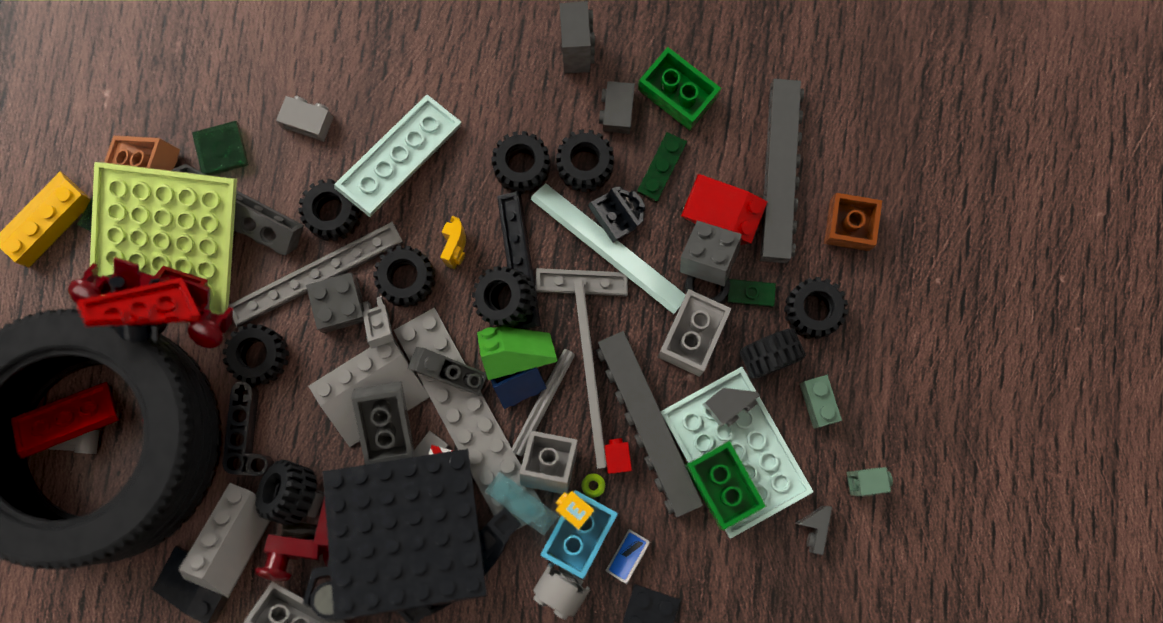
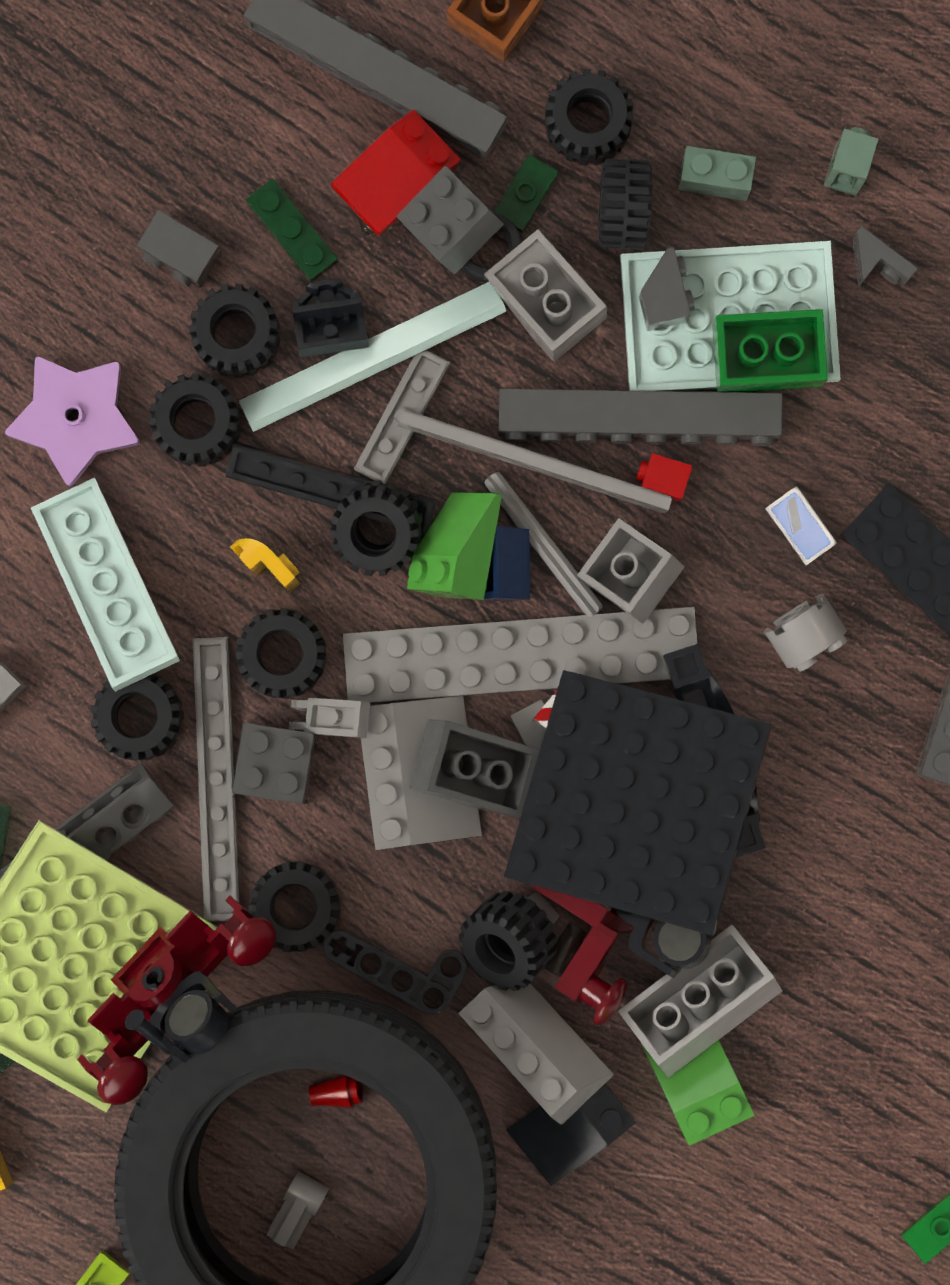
camera: 65 degrees left, 5 degrees up
(64, 420) = (264, 1206): red plate -> none
(147, 304) = (182, 997): red wing -> none
(447, 370) = (441, 652): dark grey slope -> none
(496, 108) = (99, 423): none -> lavender plate
(522, 503) = (669, 629): clear light blue brick -> none
(574, 509) = (710, 561): yellow brick -> none
(577, 37) = (55, 258): dark grey brick -> none
(577, 548) = (742, 574): medium azure brick -> none
(593, 493) = (686, 517): lime plate -> none
(679, 88) = (194, 152): green brick -> none

